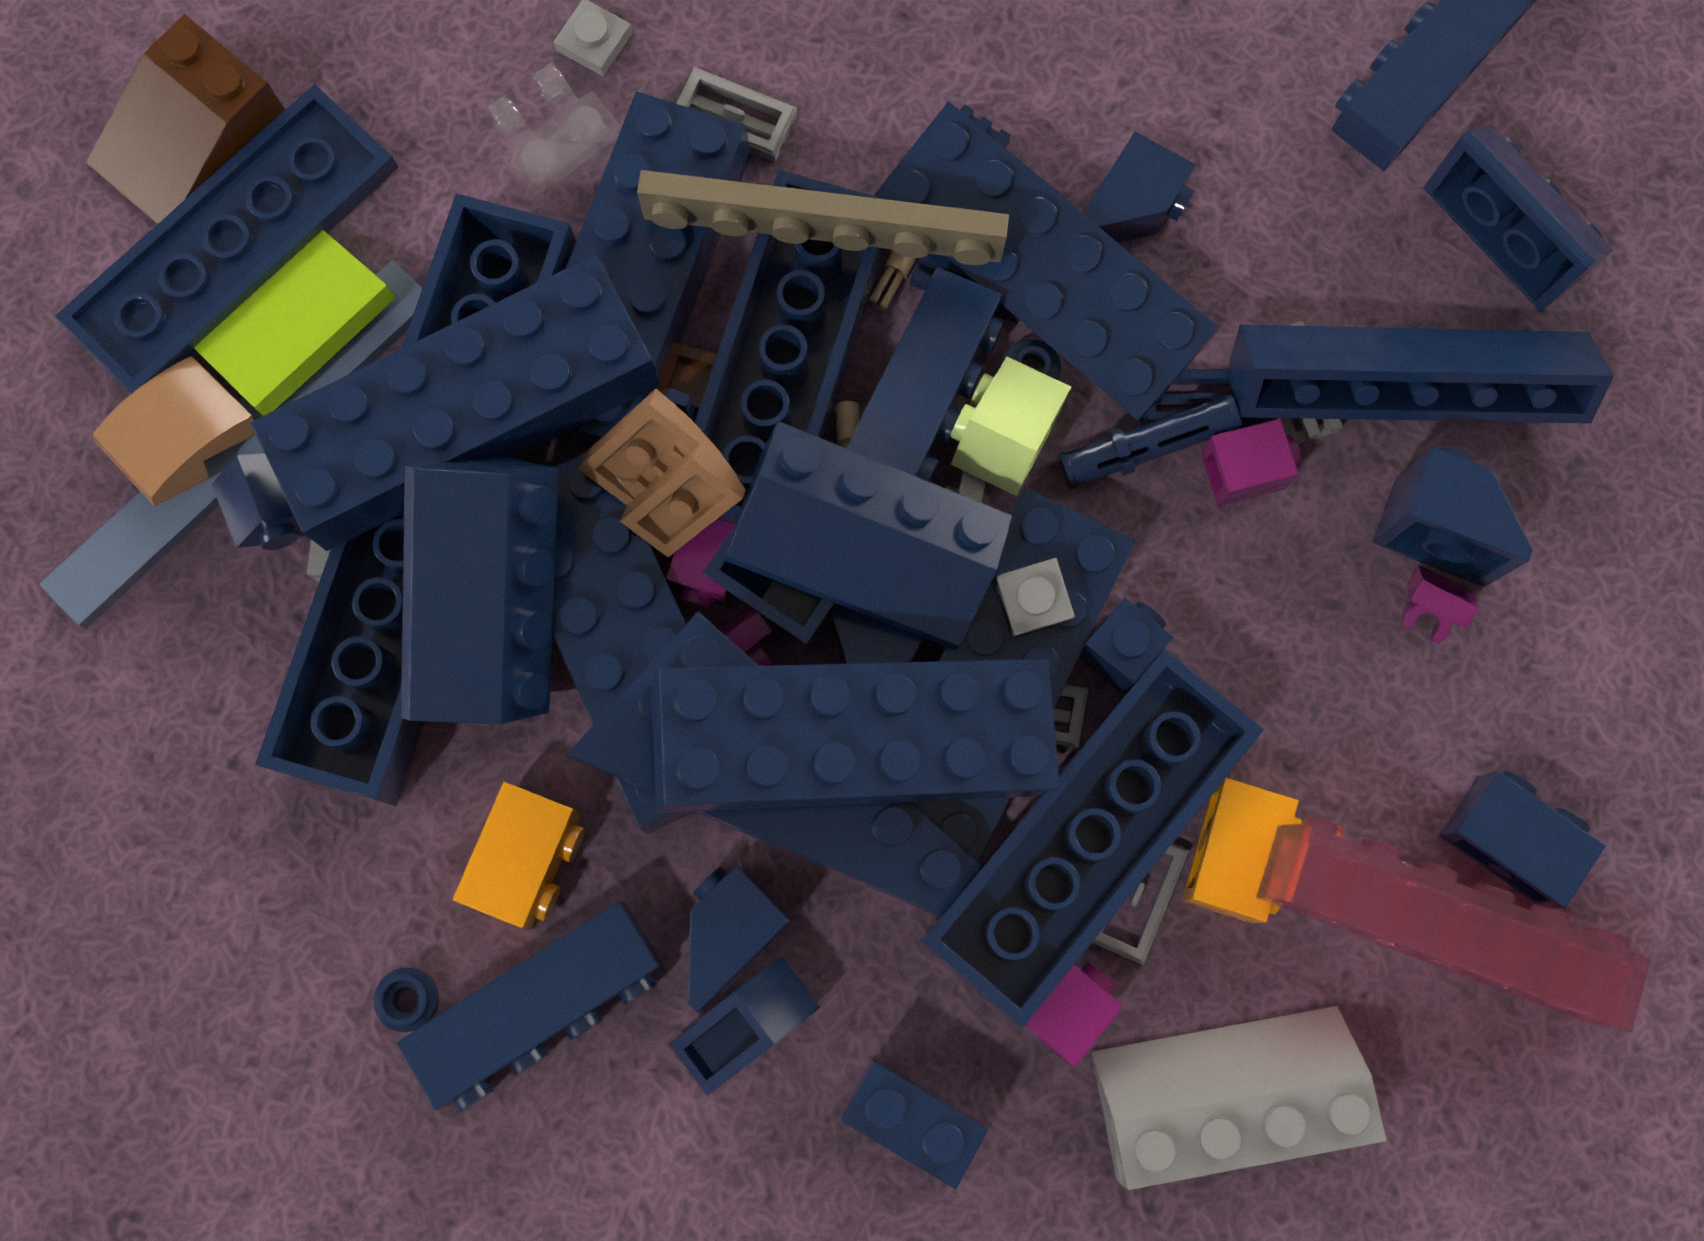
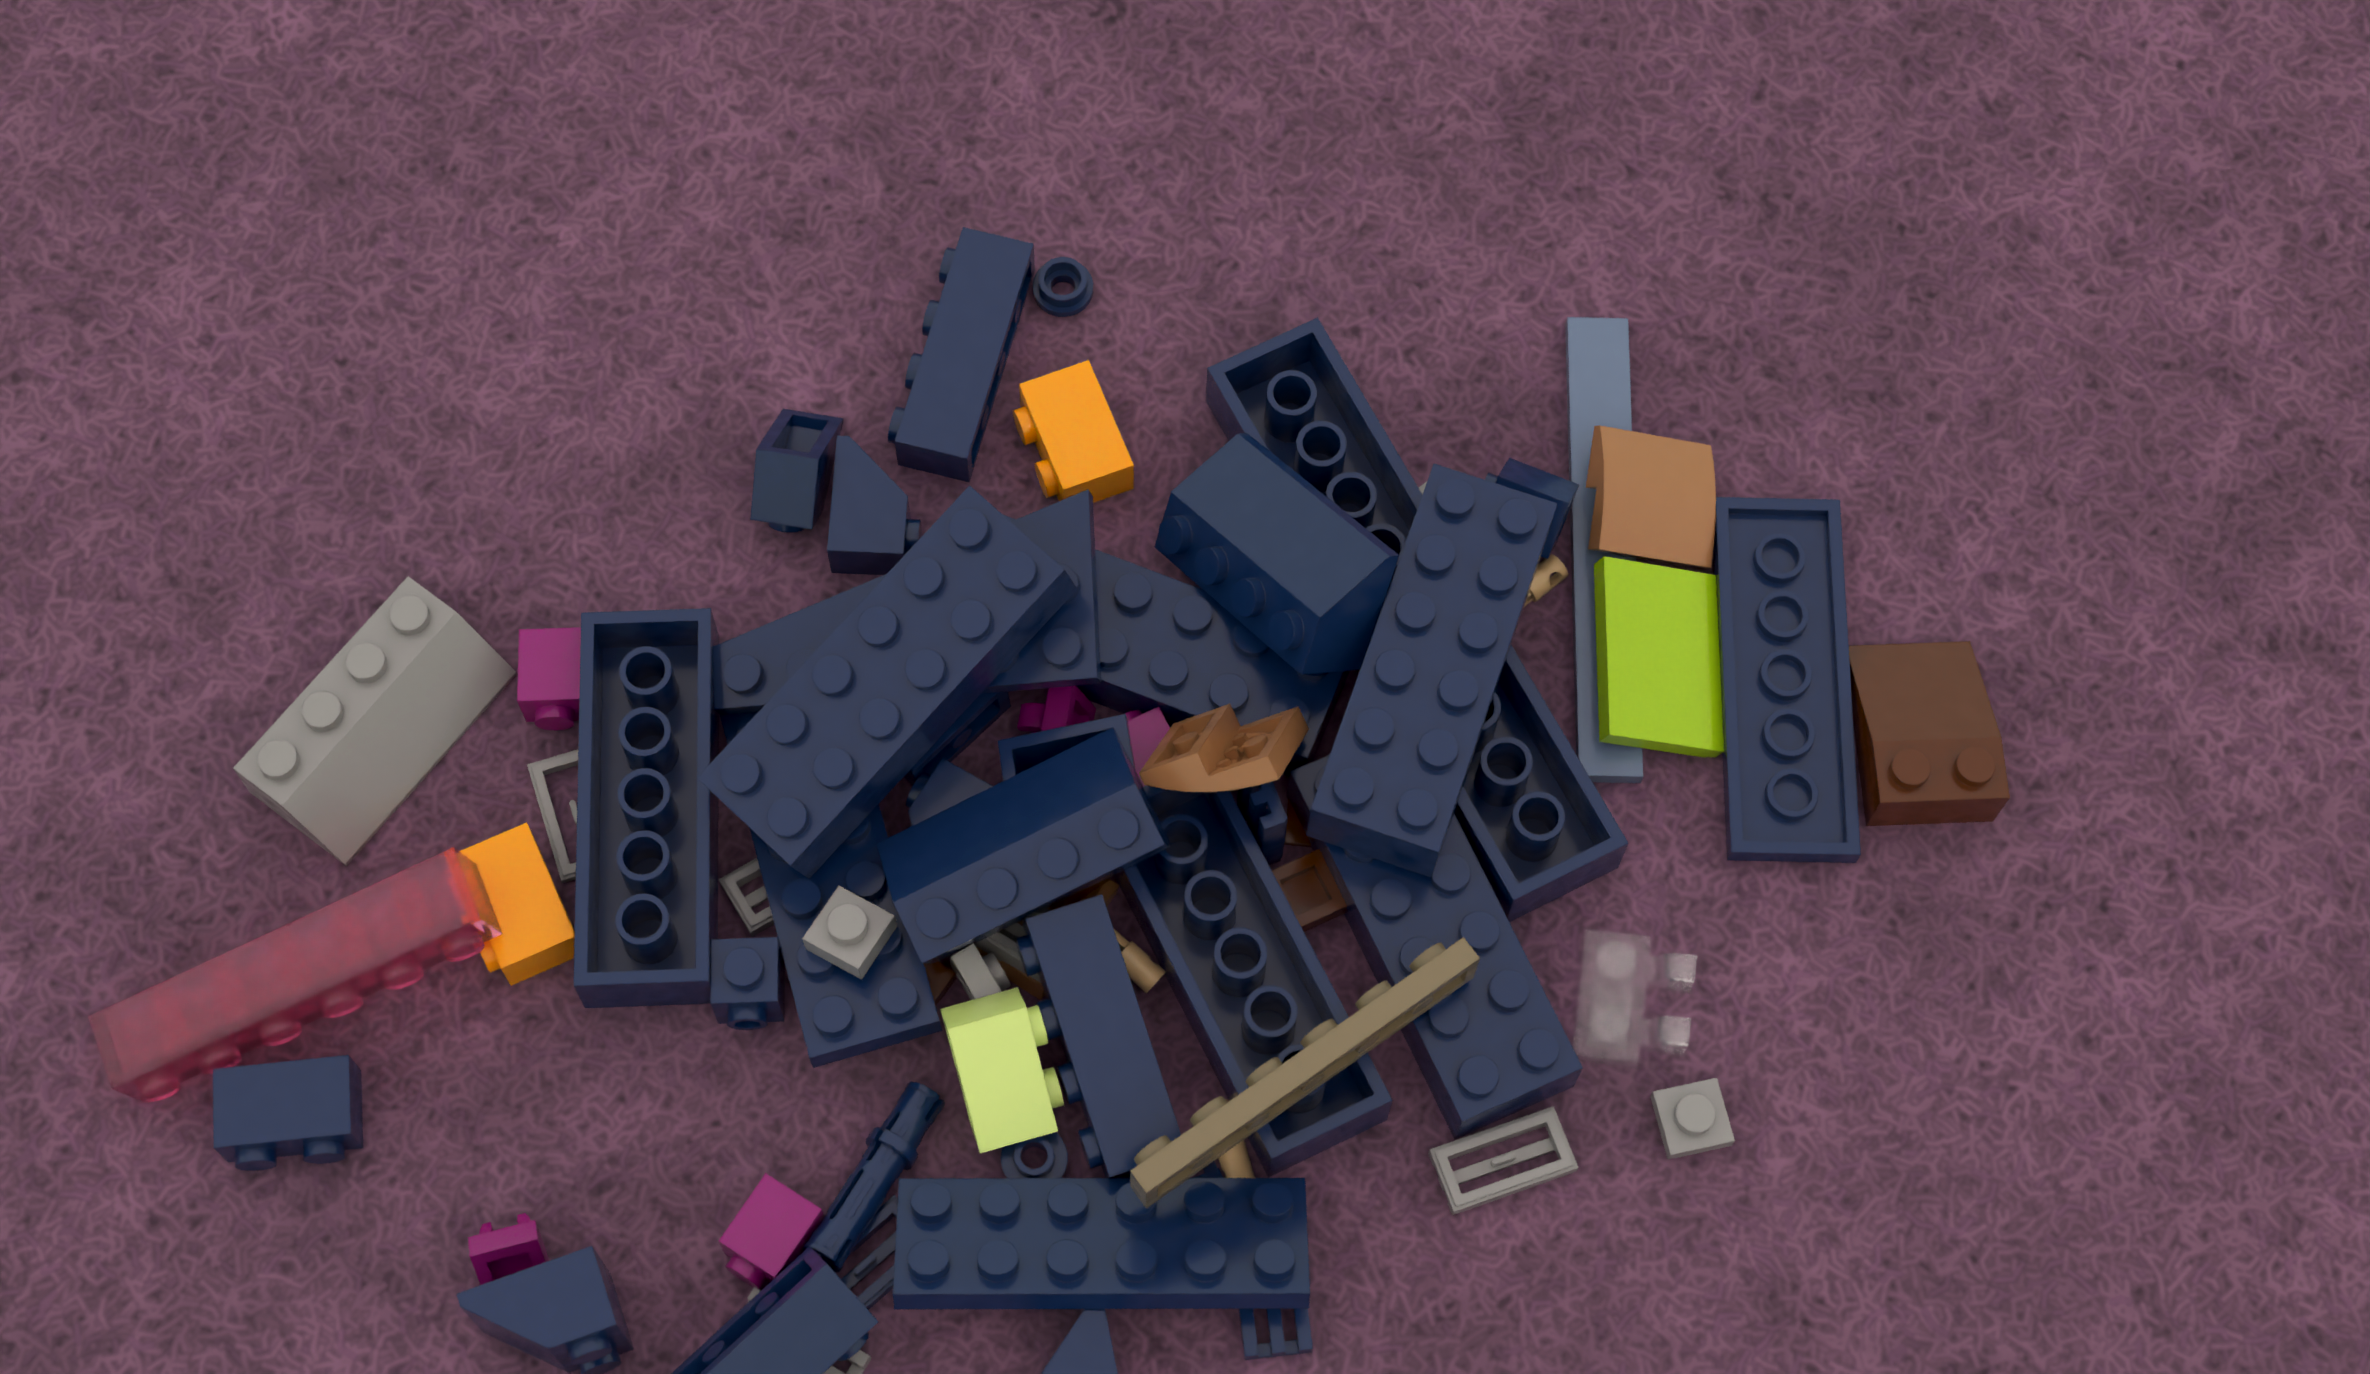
camera: 135 degrees right, 10 degrees down
(914, 1123) = (609, 504): dark blue brick -> none

